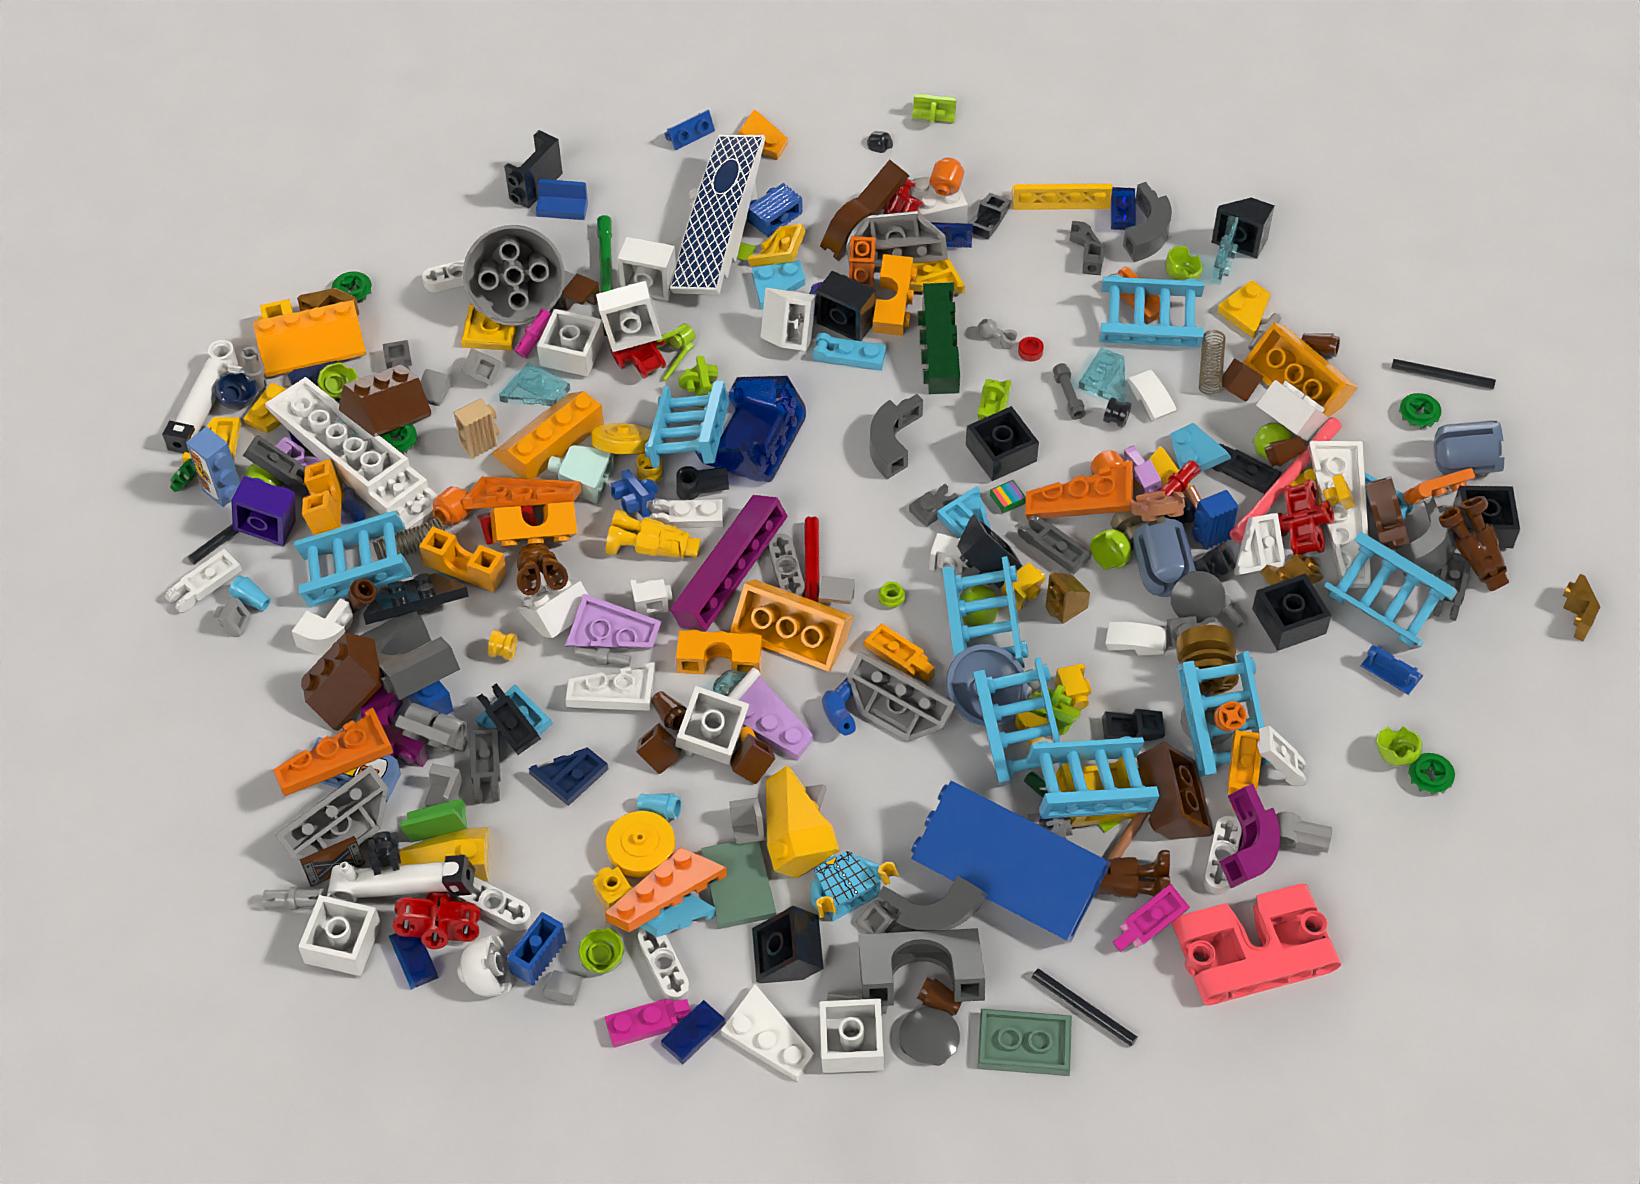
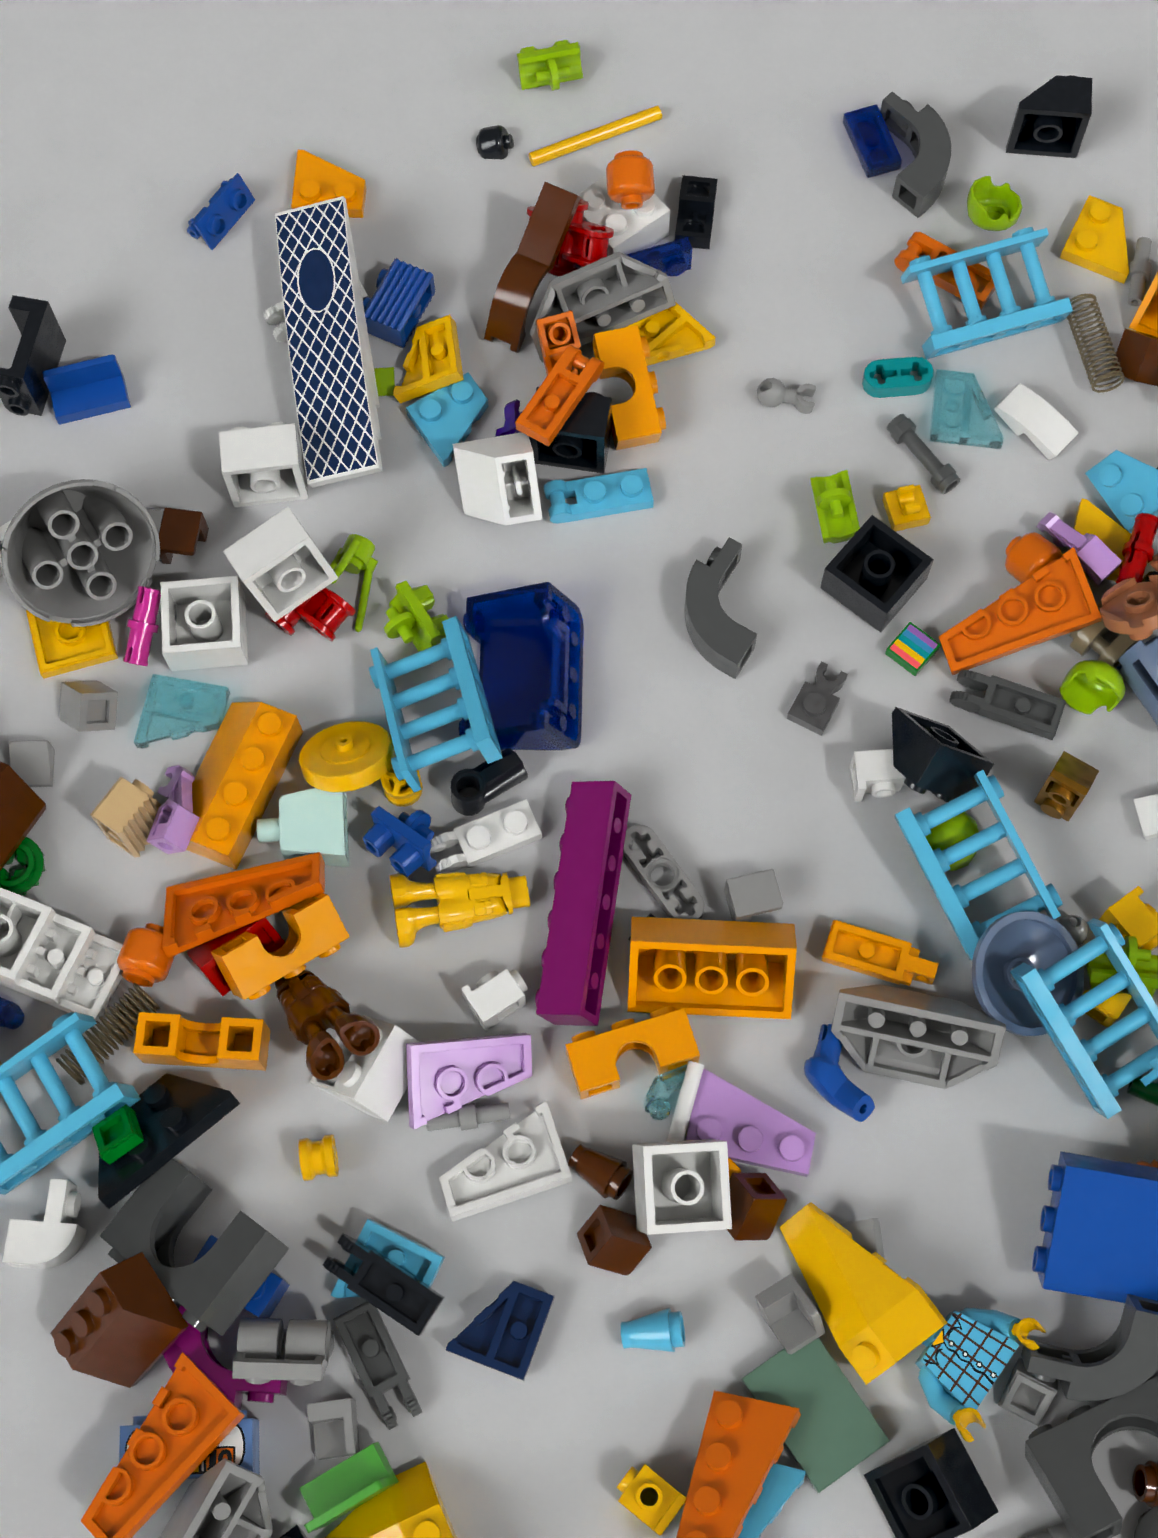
camera: 20 degrees left, 15 degrees up
(360, 594) = (77, 1159): reddish brown cone -> none
(389, 586) = (117, 1134): none -> green tile
(504, 436) = (175, 817): none -> lavender piece
(604, 234) = (174, 427): green piece -> none
(639, 843) = (656, 1408): yellow wheel -> none
(812, 575) = (692, 851): red axle -> none
(842, 276) = (558, 395): none -> orange plate
(891, 588) = (829, 855): lime plate -> none
(936, 156) = (595, 135): none -> yellow bar
(939, 339) = (720, 437): dark green wedge -> none
(958, 512) = (870, 703): medium azure wing -> none
(1027, 585) = (1009, 773): yellow brick -> none
(1030, 349) = (842, 403): red tile -> none
(1043, 417) = (906, 507): none -> yellow tile
(1061, 196) = (781, 148): yellow fence -> none
(1074, 344) = (897, 377): none -> teal beam
(1093, 249) = (843, 203): dark grey piece -> none
(1117, 412) = (1004, 466): black wheel -> none
(1226, 251) = (1039, 165): clear light blue wing -> none

